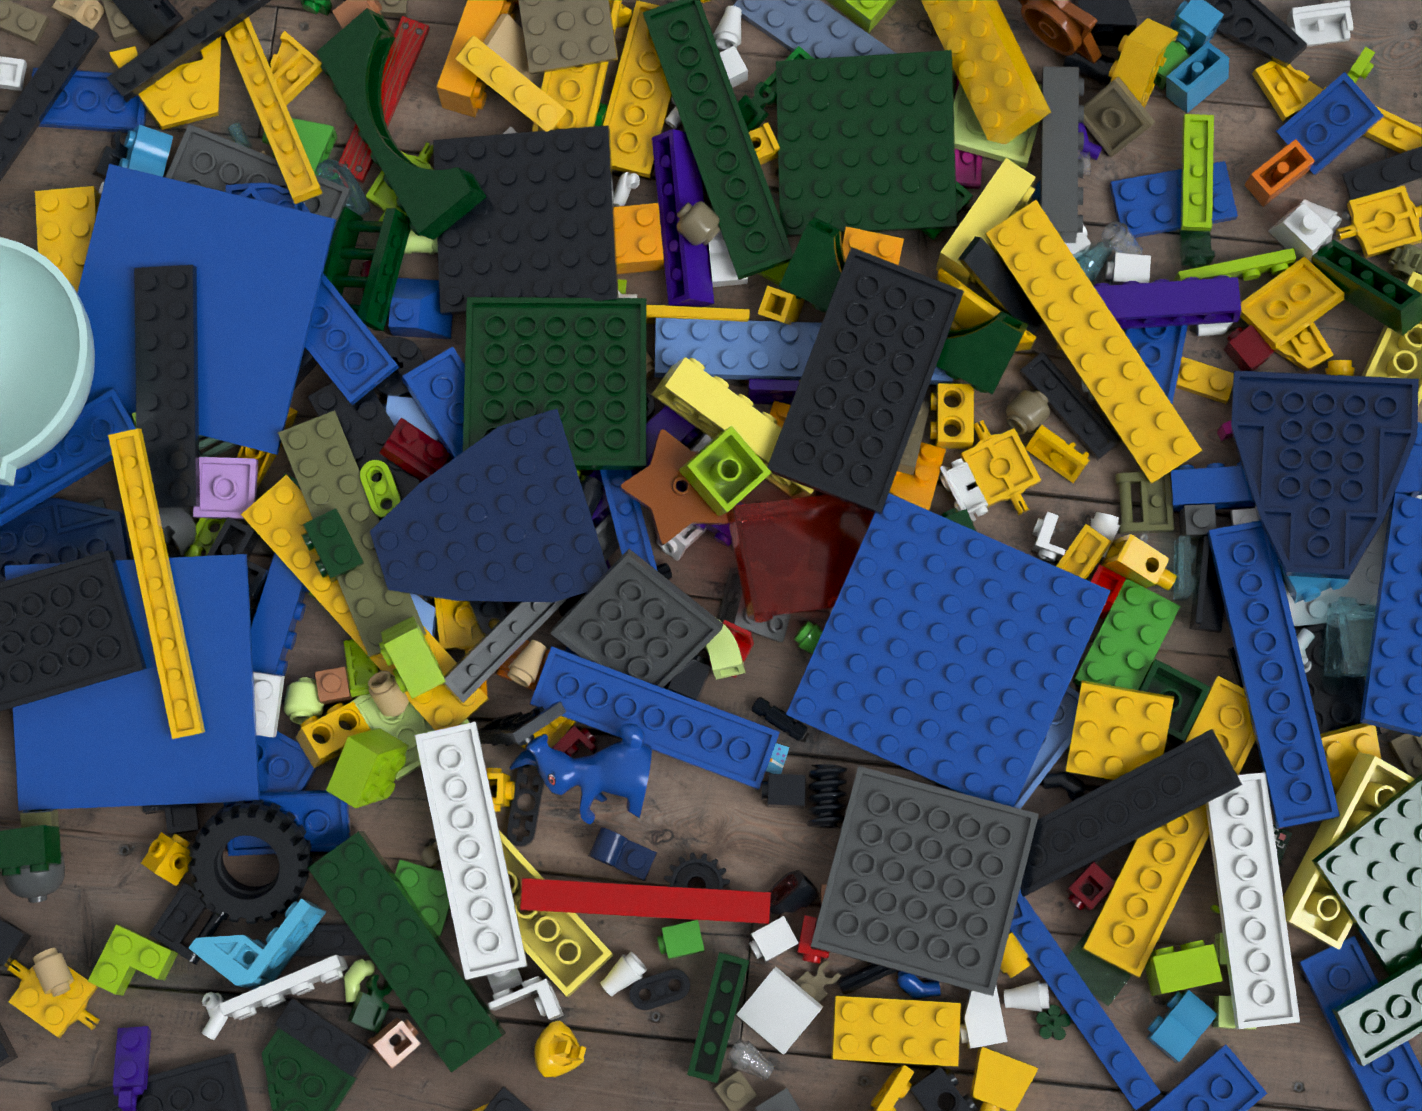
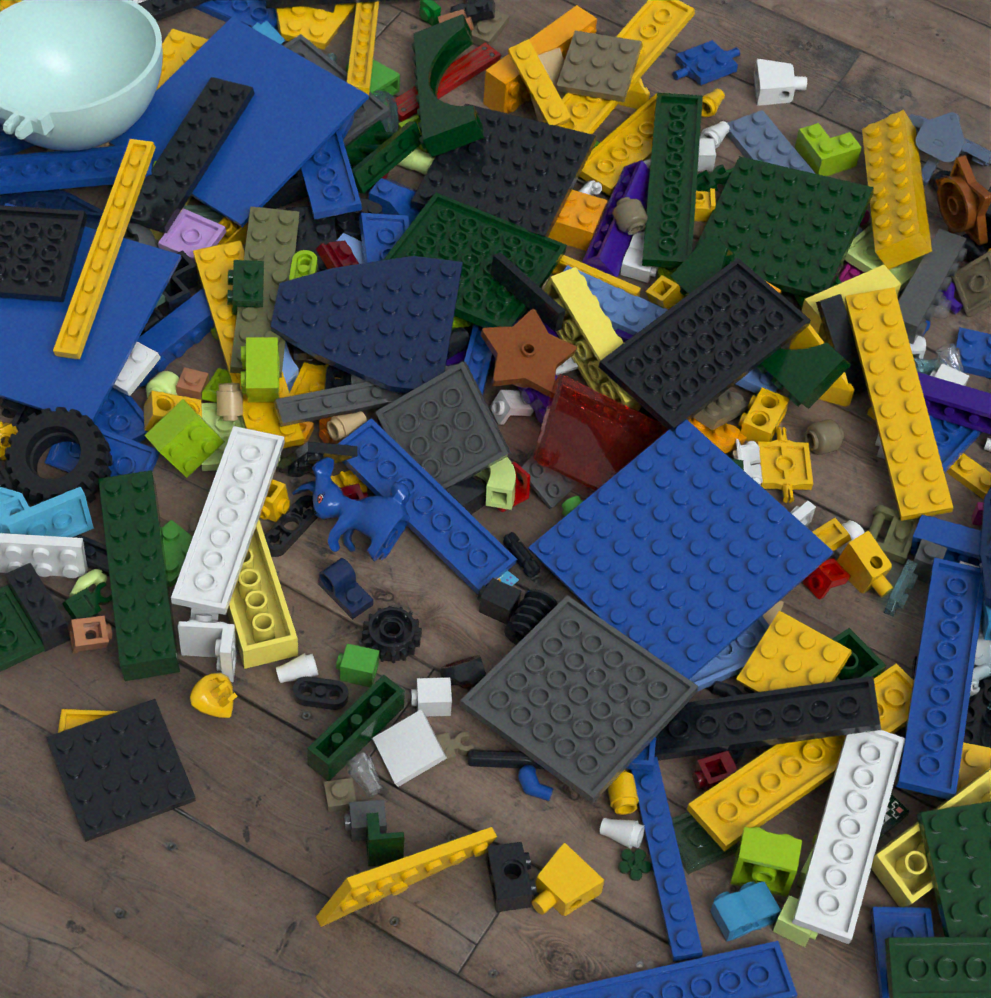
camera: 20 degrees right, 25 degrees down
(293, 67) = (392, 41): yellow wing -> none
(642, 405) = (527, 291): none -> black tile
(645, 901) = (346, 614): red tile -> none
(725, 471) = (566, 347): lime brick -> none
(805, 941) = (458, 717): red bracket -> none
(896, 1031) = (490, 797): yellow brick -> none
(982, 1021) = (576, 826): white slope -> none
(1057, 453) = (834, 473): yellow plate -> none
(1070, 406) = (861, 450): black plate -> none
(1128, 638) = (838, 609): bright green plate -> none
(1207, 599) = (908, 623): black panel -> none

